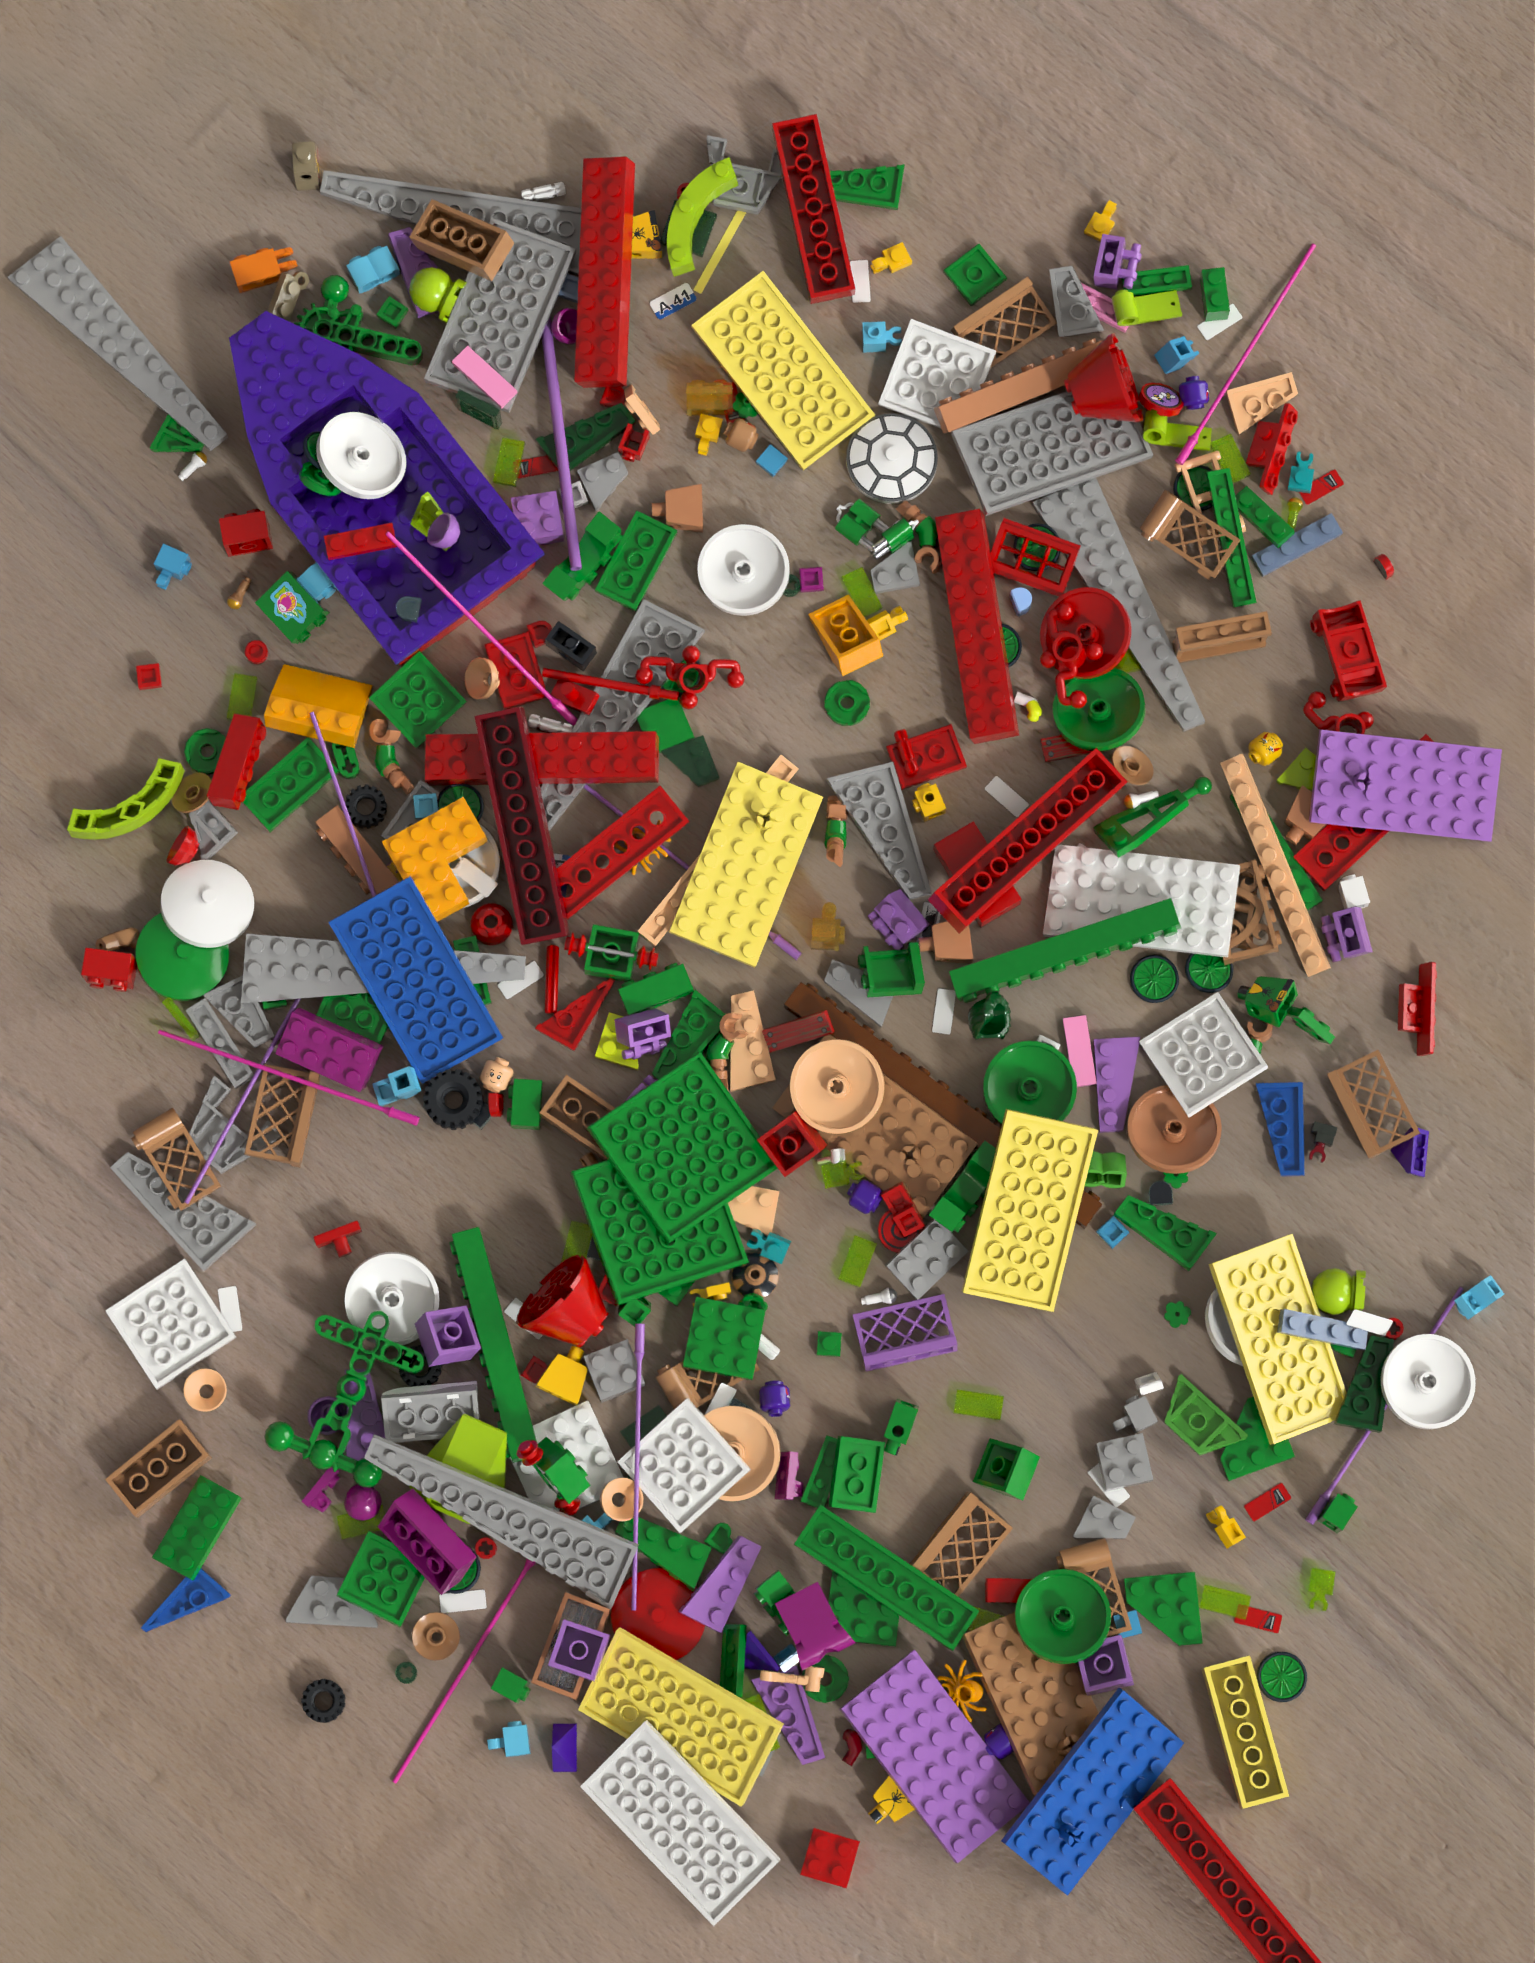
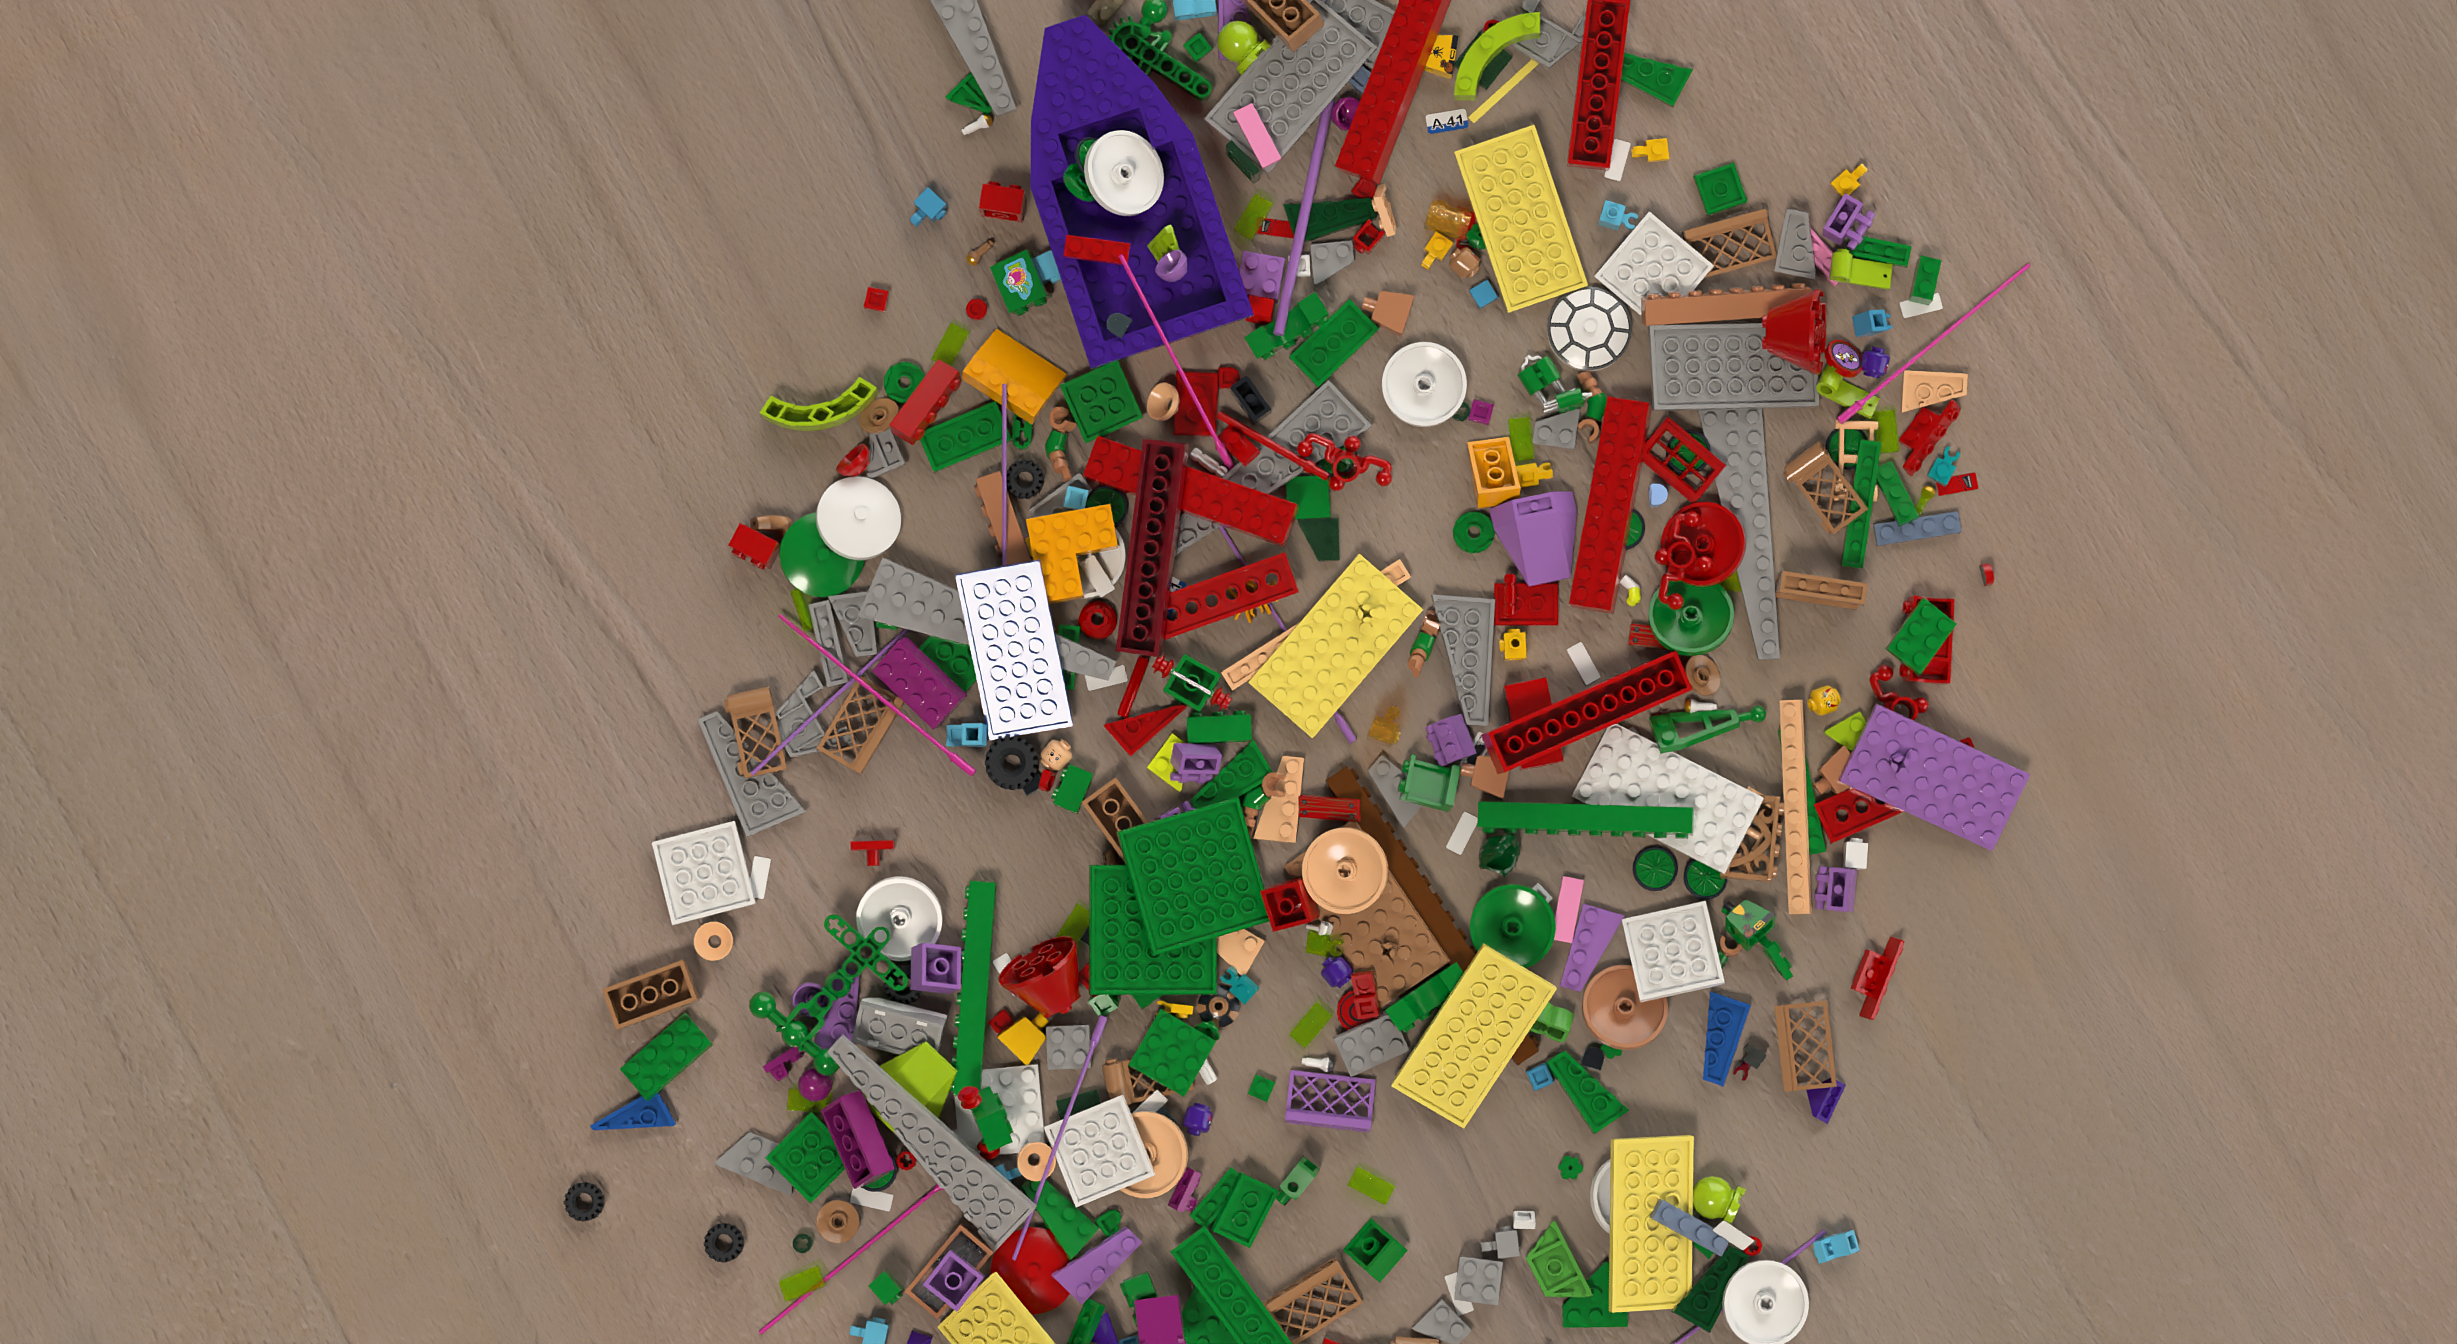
camera: 20 degrees right, 5 degrees up
(148, 1702) = (597, 1201): none -> black tyre
(420, 1715) = (802, 1283): none -> clear neon green tile
(552, 549) = (1262, 310): none -> red brick
(913, 681) = (1538, 535): none -> medium lavender wedge
(1340, 648) = (1921, 636): none -> green plate

